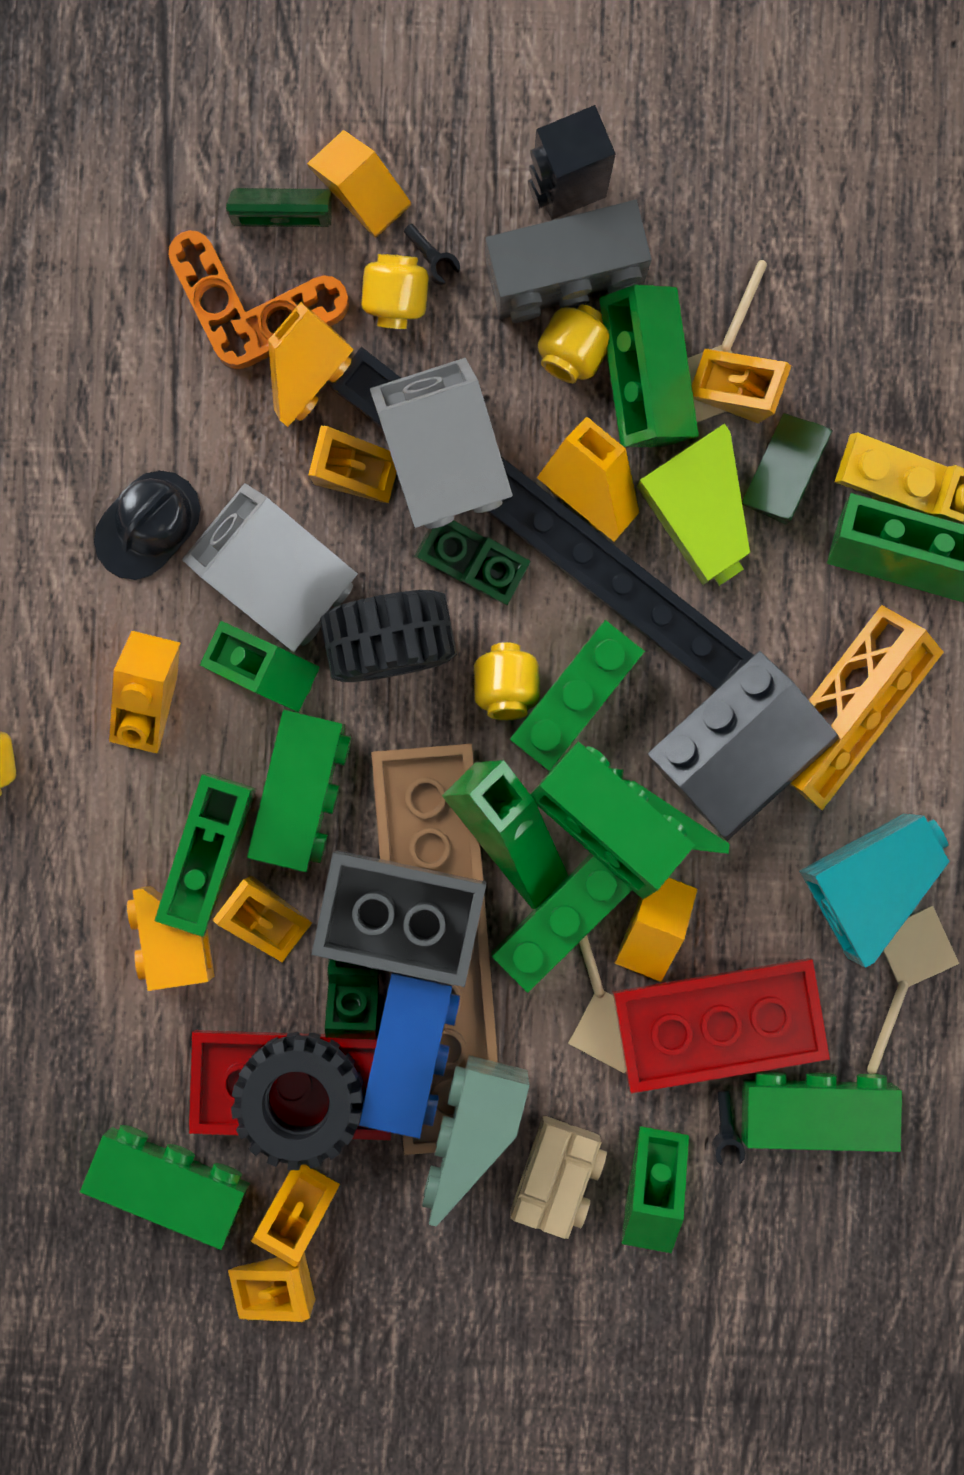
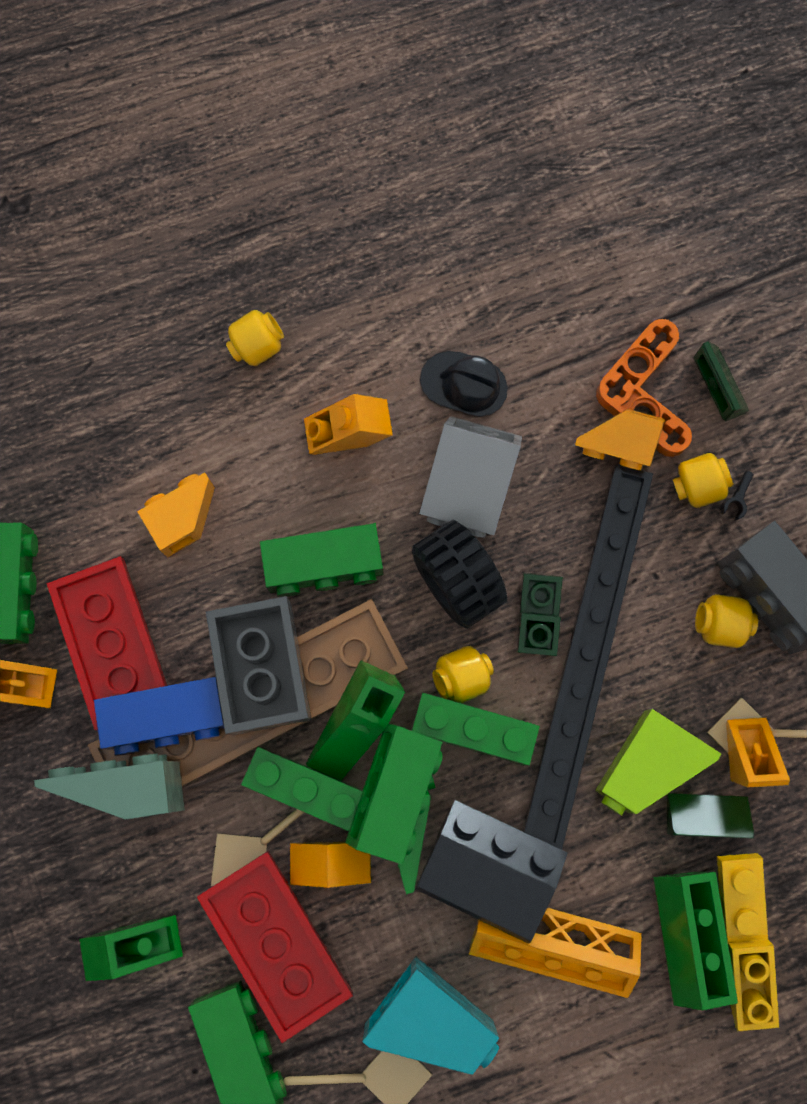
camera: 65 degrees right, 10 degrees down
(205, 853) = (252, 511): green slope -> none
(259, 666) = (399, 497): green slope -> none
(262, 919) = (221, 570): light orange slope -> none
(271, 1134) = (70, 630): black tyre -> none
(351, 1001) = (185, 660): dark green slope -> none
(352, 466) = (567, 501): light orange slope -> none
(360, 182) = (764, 428): light orange slope -> none
(442, 443) = (611, 554): light grey slope -> none
(557, 1178) = (112, 867): tan brick -> none
(593, 478) = (637, 675): light orange slope -> none
(649, 366) = (735, 681): green brick -> none
(726, 1129) = (192, 986): black hand -> none

